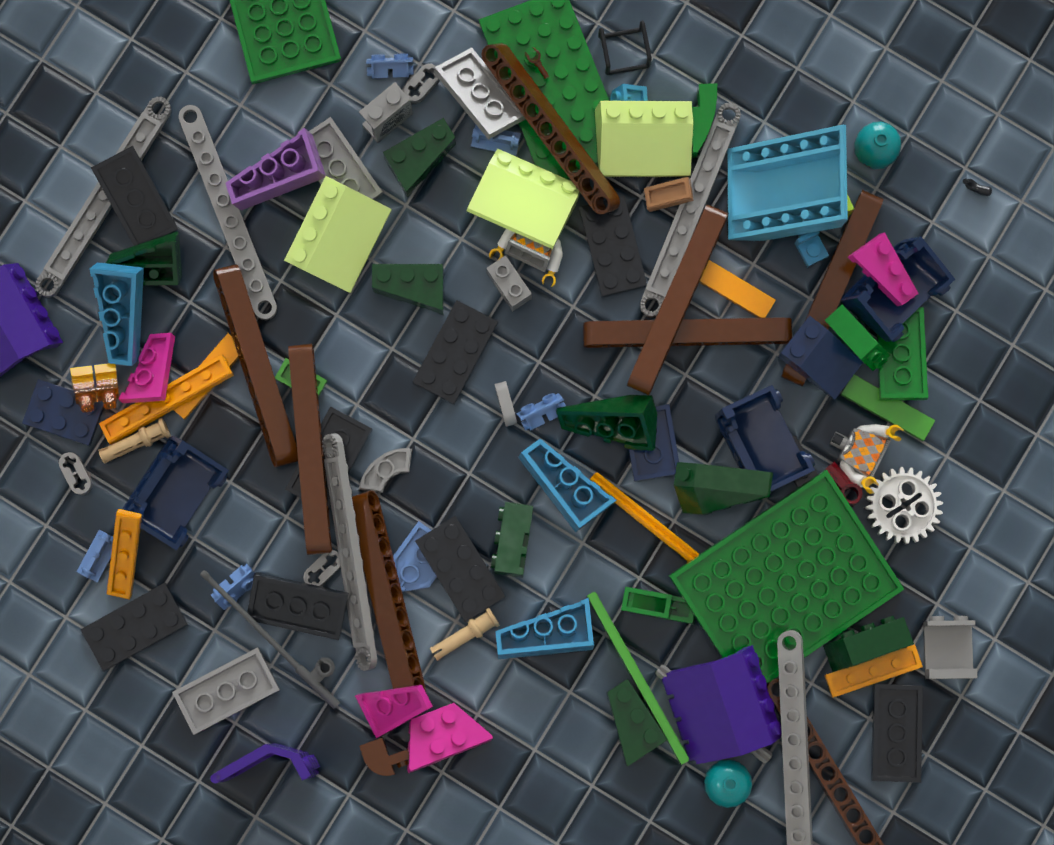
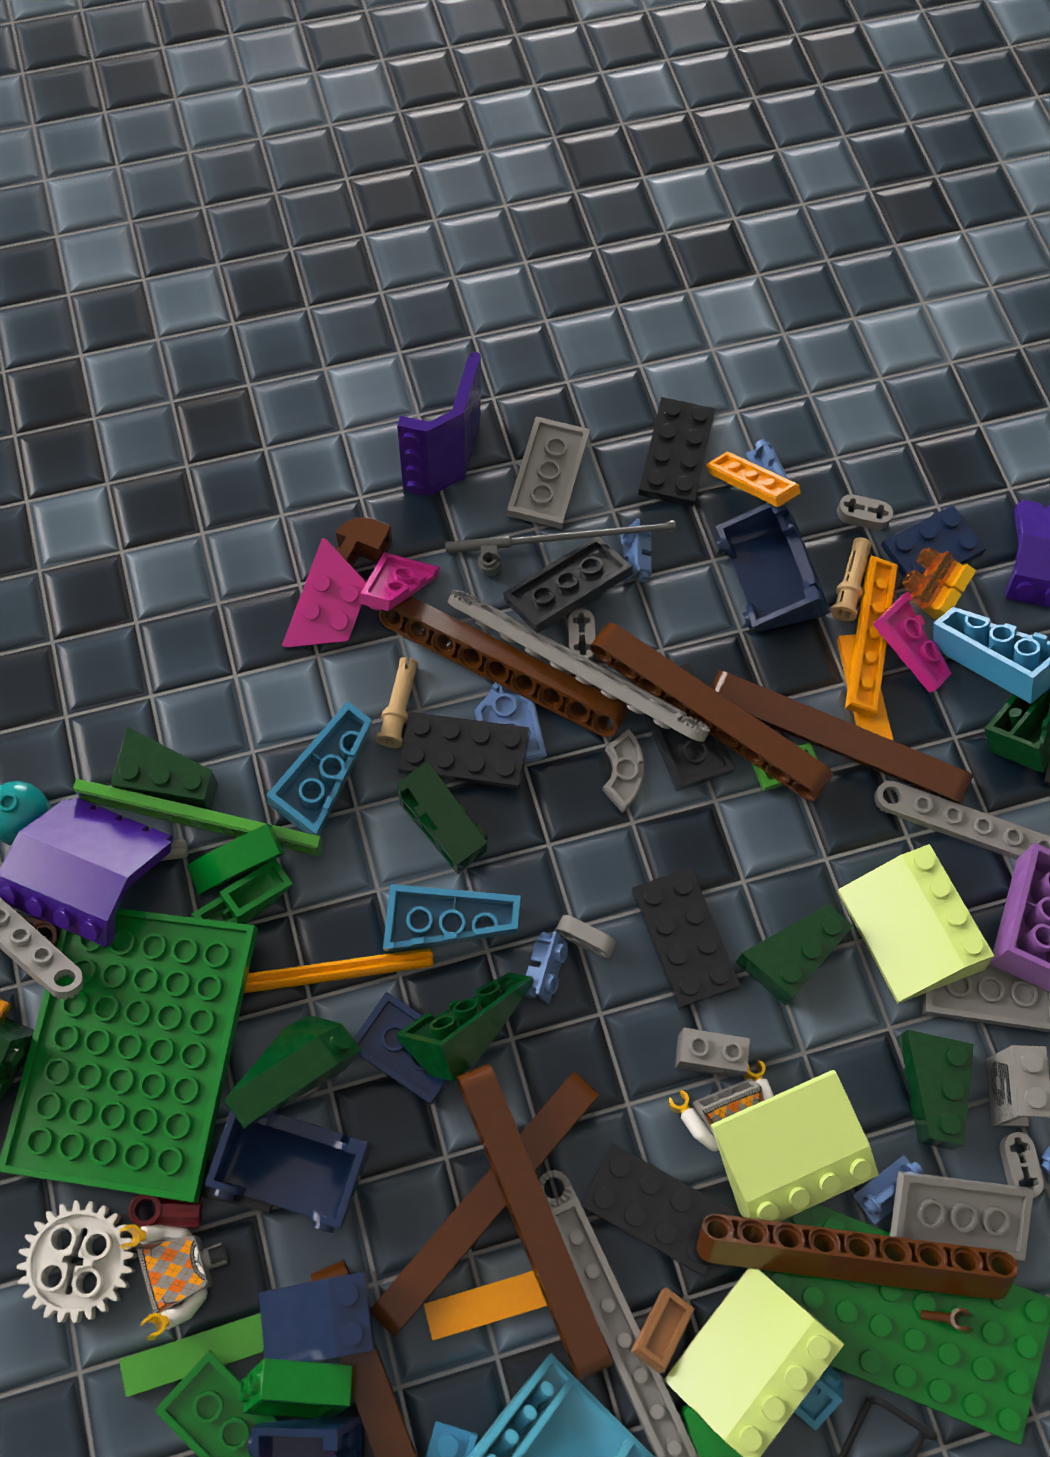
camera: 130 degrees right, 15 degrees down
(641, 630) = (235, 858): none -> green slope

